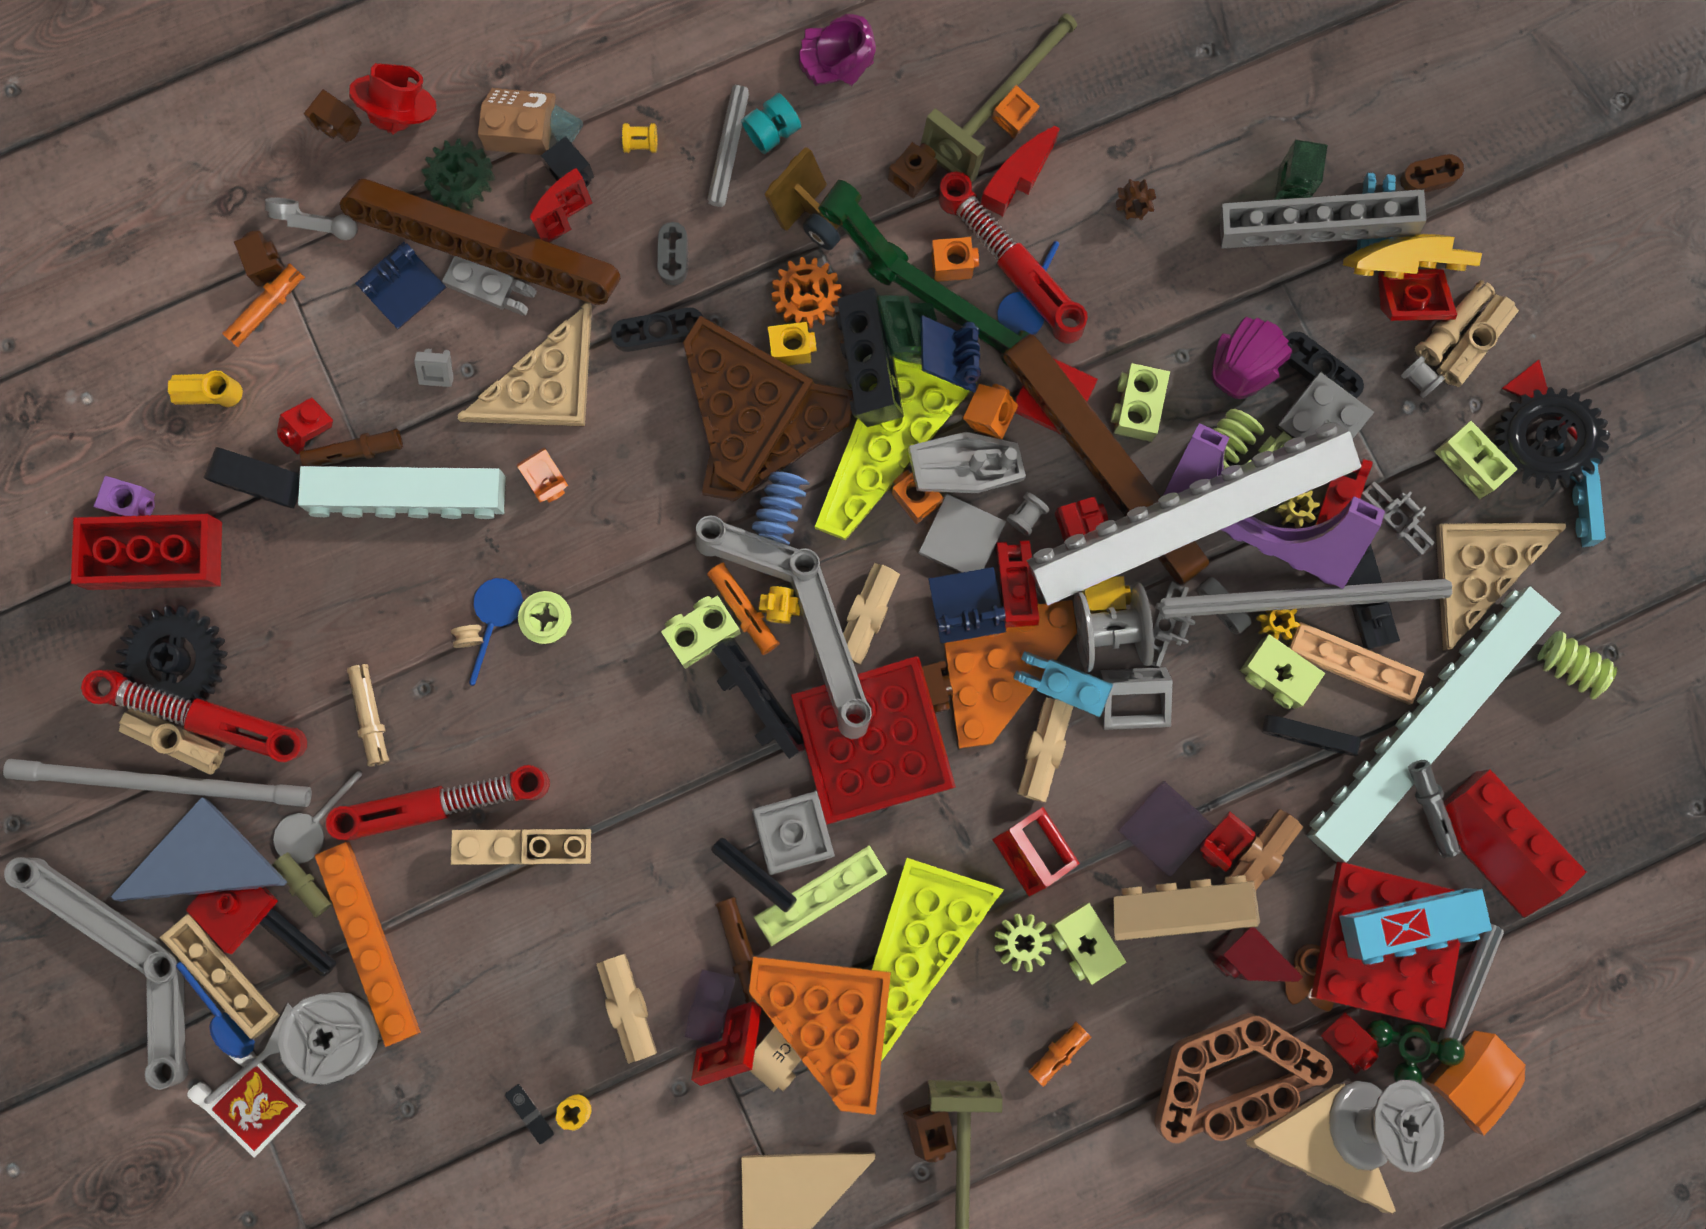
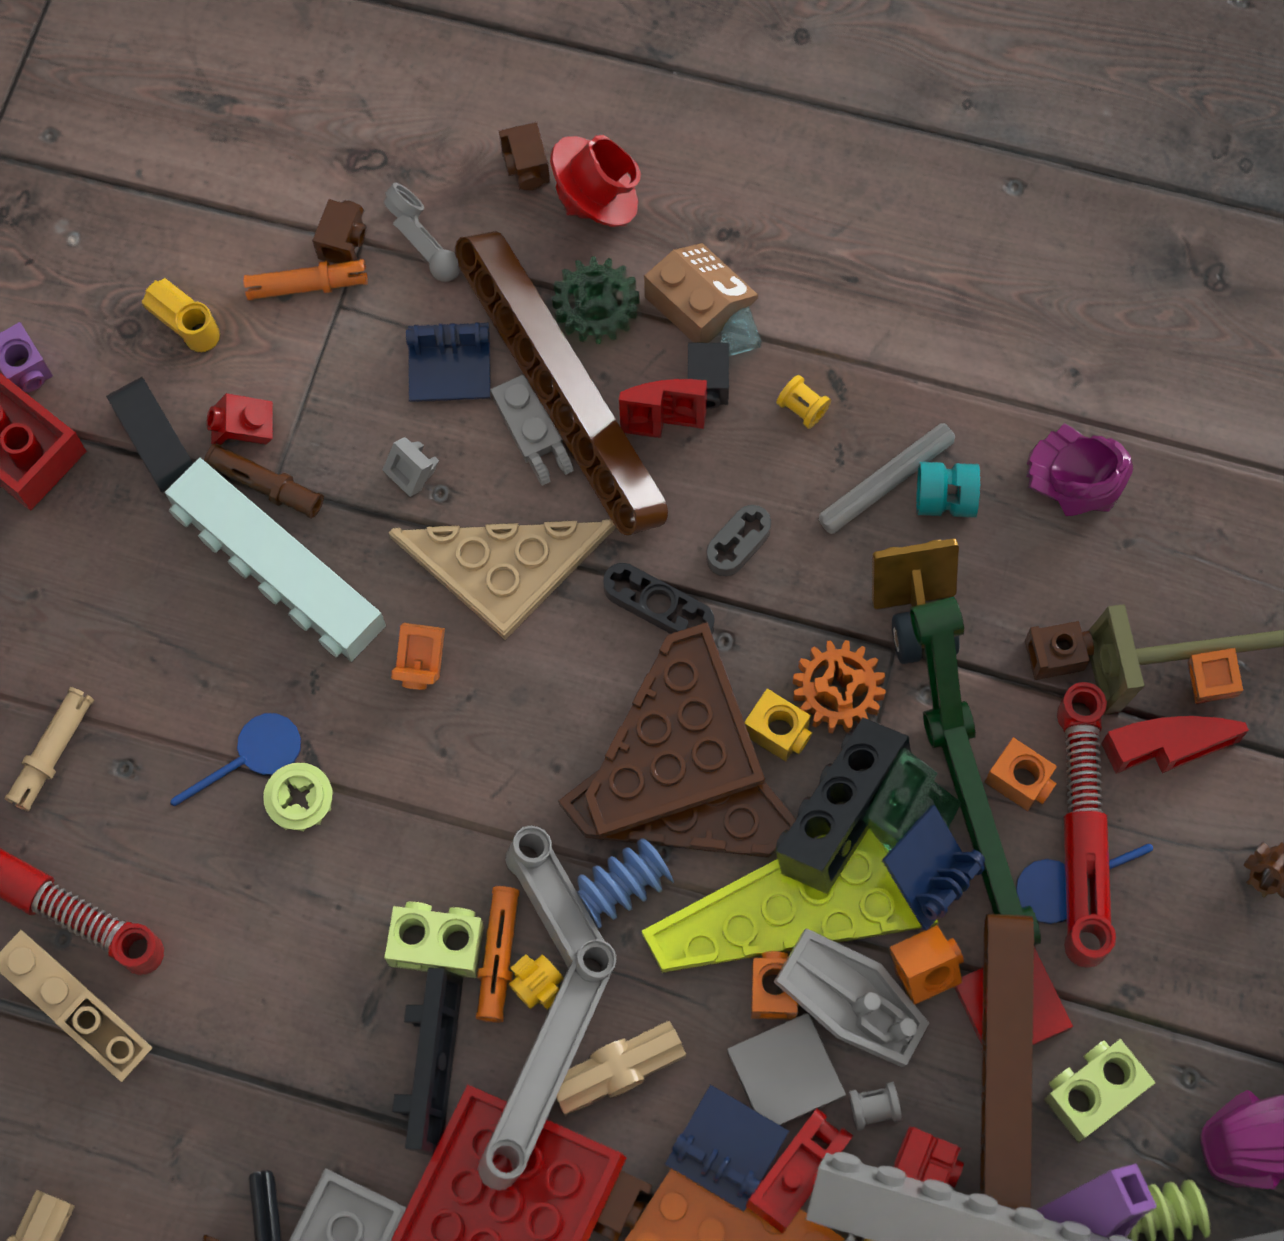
camera: 45 degrees right, 10 degrees down
(467, 636) = (208, 751): tan bush -> none

